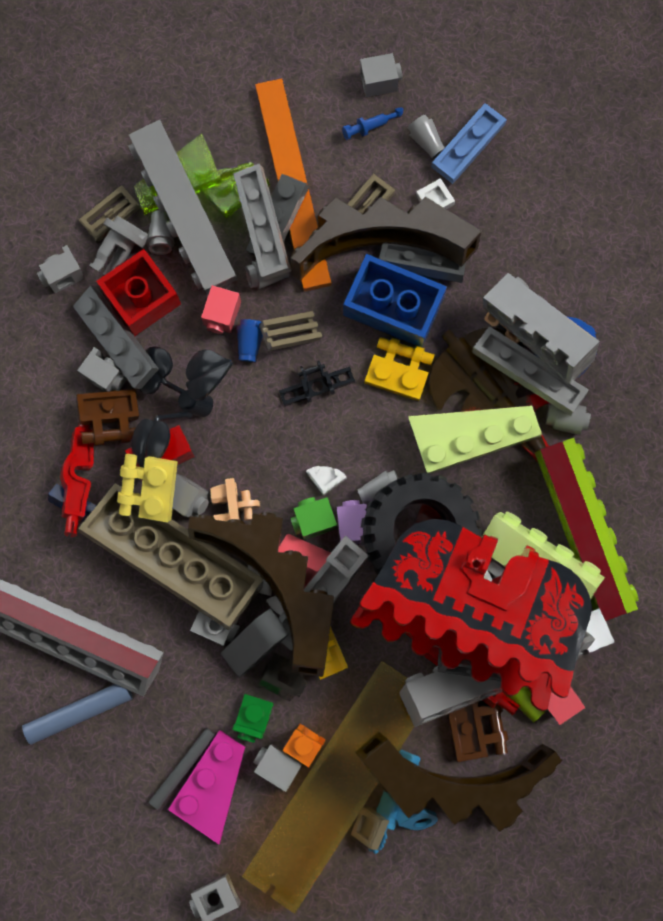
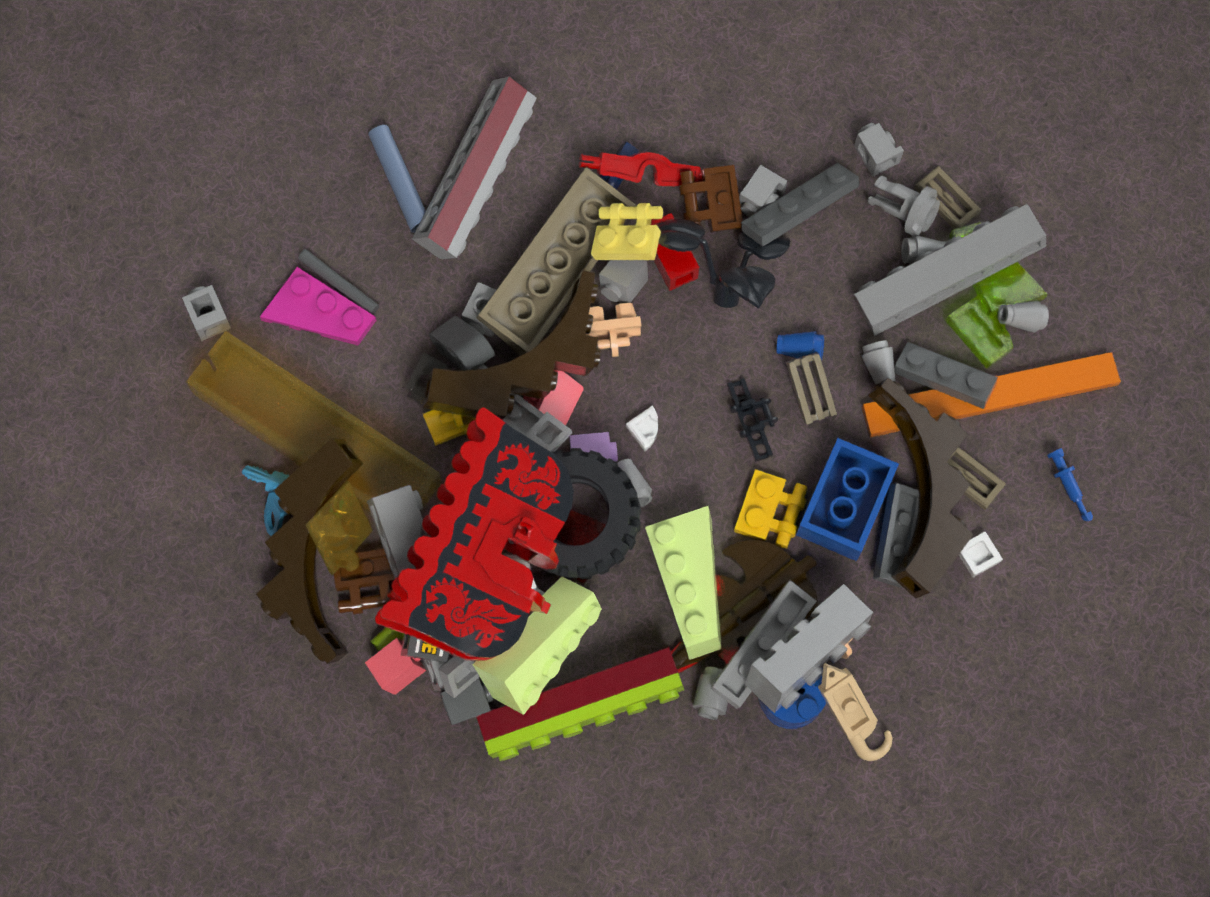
camera: 85 degrees right, 5 degrees down
(139, 292) = (851, 227): red brick -> none
(220, 310) = (833, 313): coral brick -> none
(223, 150) = (1025, 315): none -> light grey cone
(253, 718) = (386, 350): green bracket -> none
(262, 222) = (935, 352): light grey plate -> none
(277, 766) = (334, 373): light grey brick -> none
(304, 745) = (356, 397): orange brick -> none
(313, 518) = (598, 410): bright green brick -> none
(370, 828) = (268, 465): dark tan tile -> none
(380, 74) = (1130, 491): light grey brick -> none
(426, 135) = (1055, 544): light grey cone -> none
(439, 754) = (340, 530): none -> clear yellow hinge
(468, 143) = (1048, 593): medium blue plate -> none
(587, 296) = (852, 711): none -> tan plate

